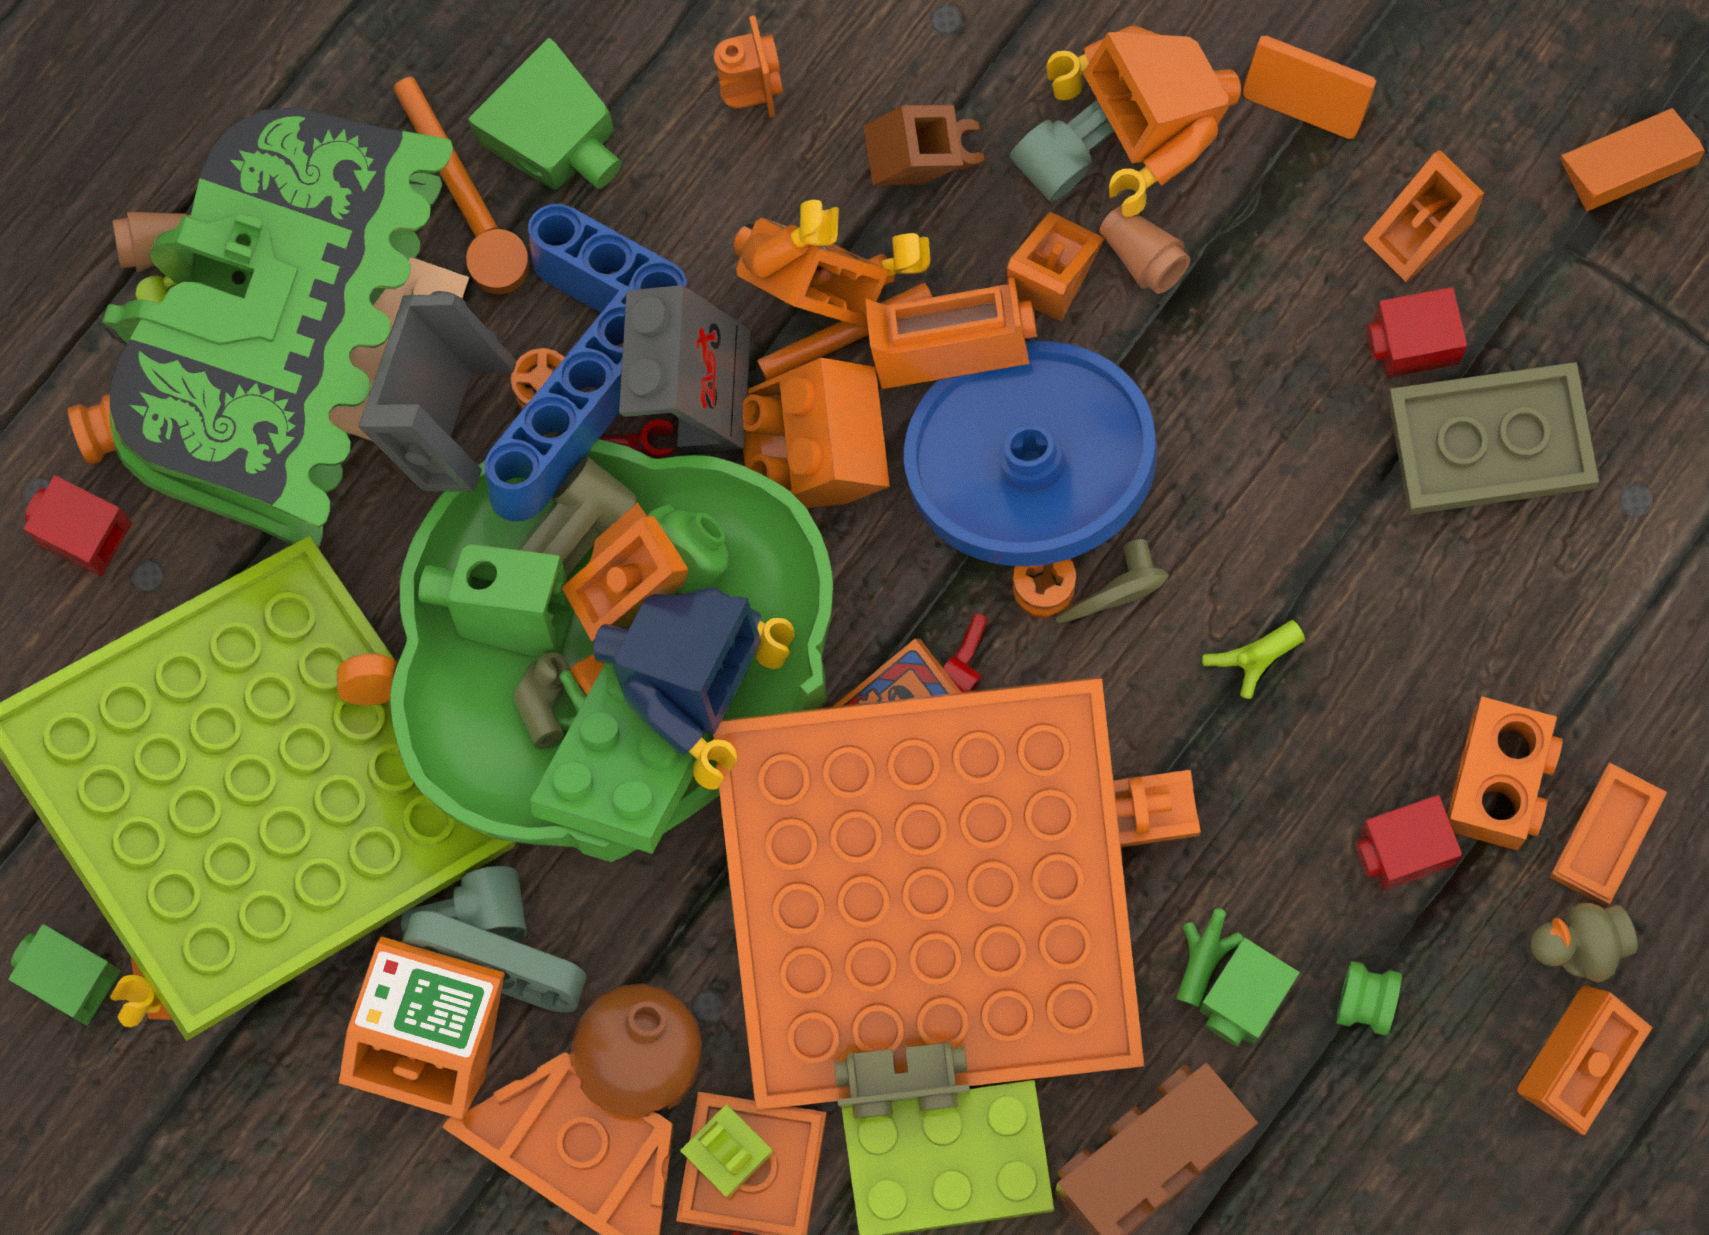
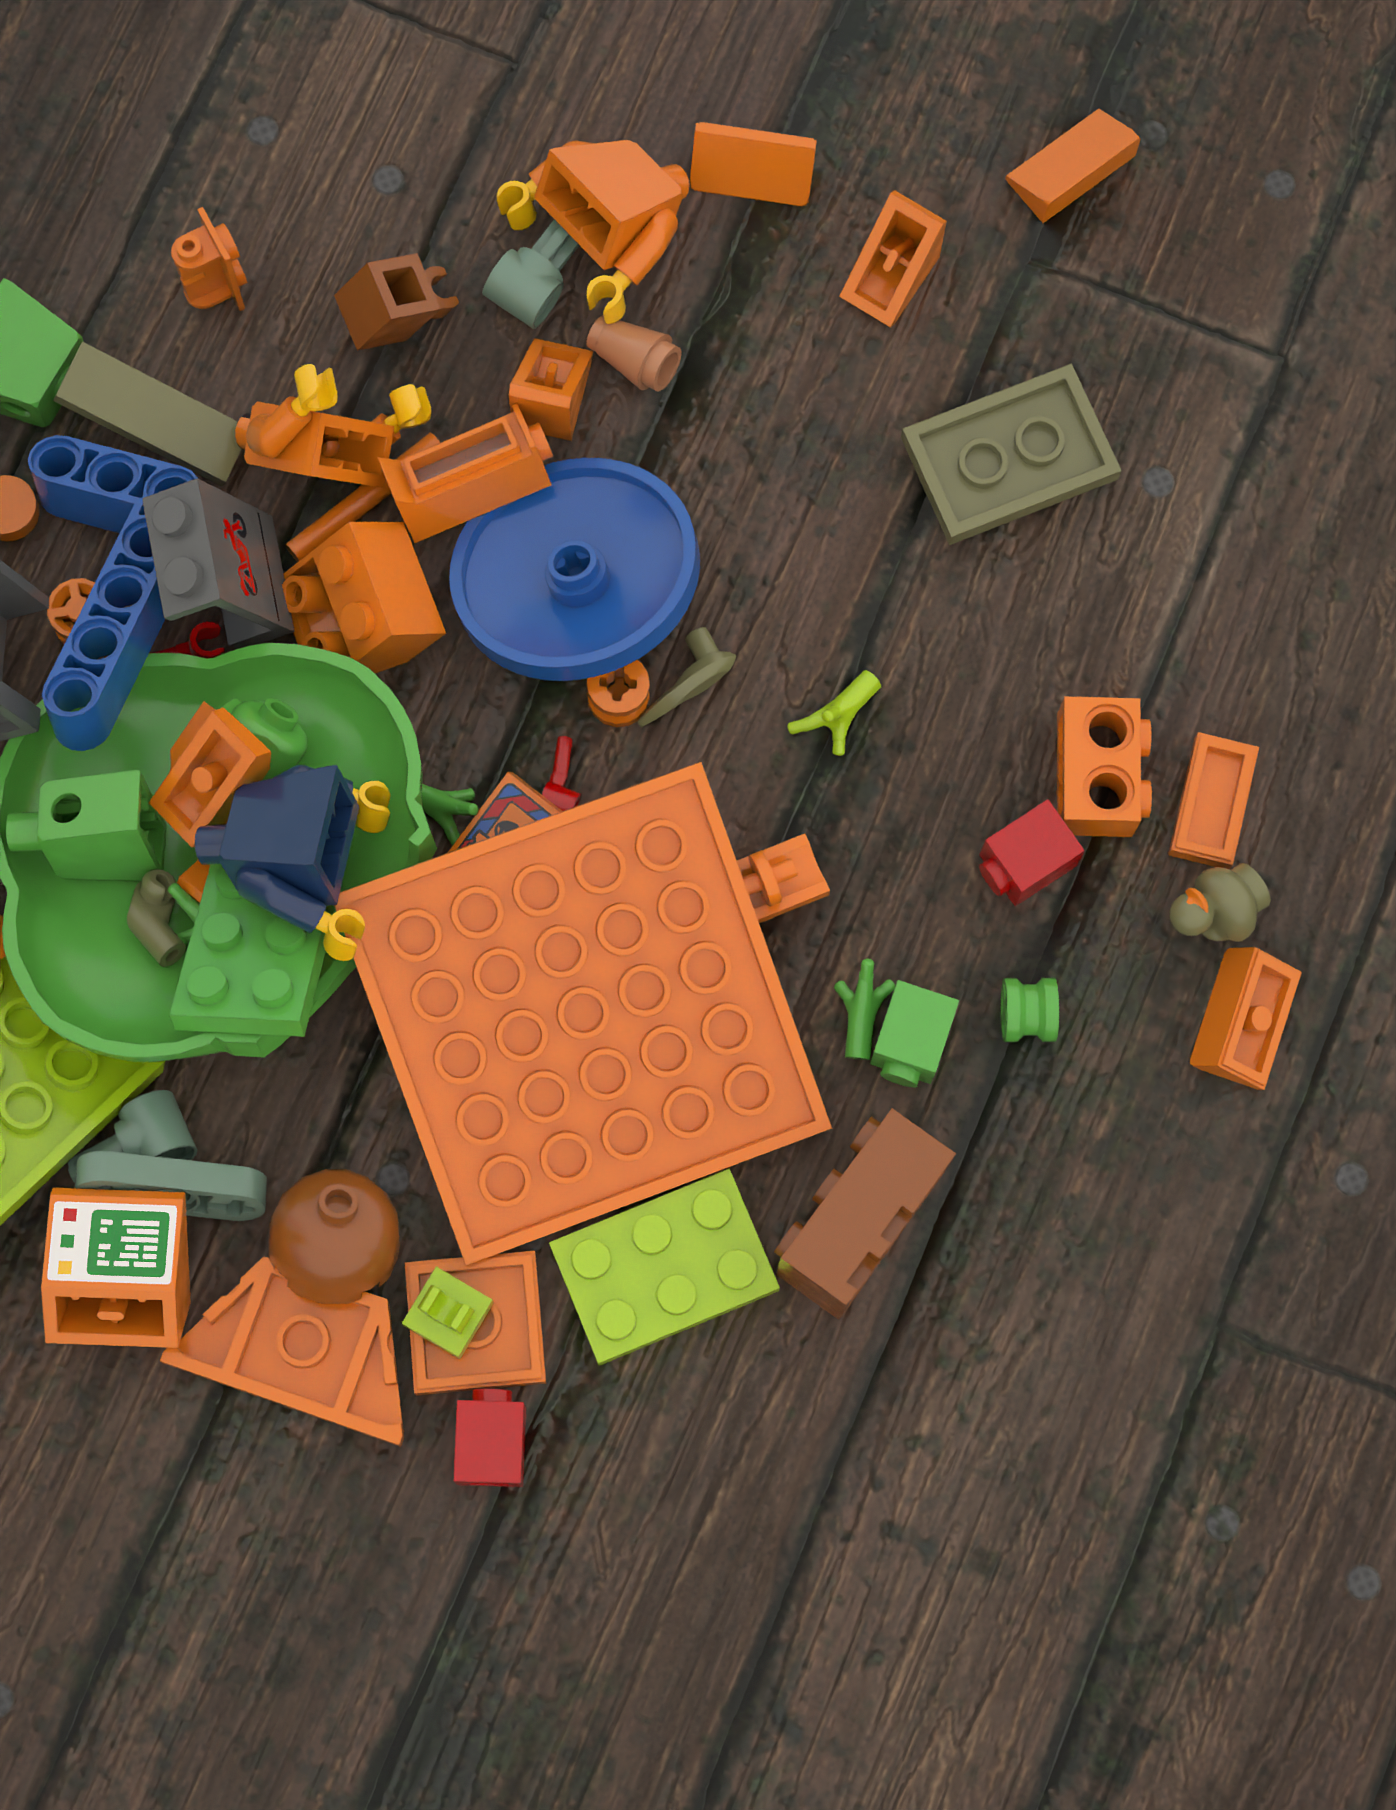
camera: 25 degrees left, 0 degrees up
(580, 513) = (149, 727): olive piece -> none
(657, 203) = (150, 413): none -> olive tile
(848, 653) = (444, 804): none -> bright green bar
(928, 1079) = (627, 1193): olive hinge -> none
(1417, 333) = (915, 370): red brick -> none

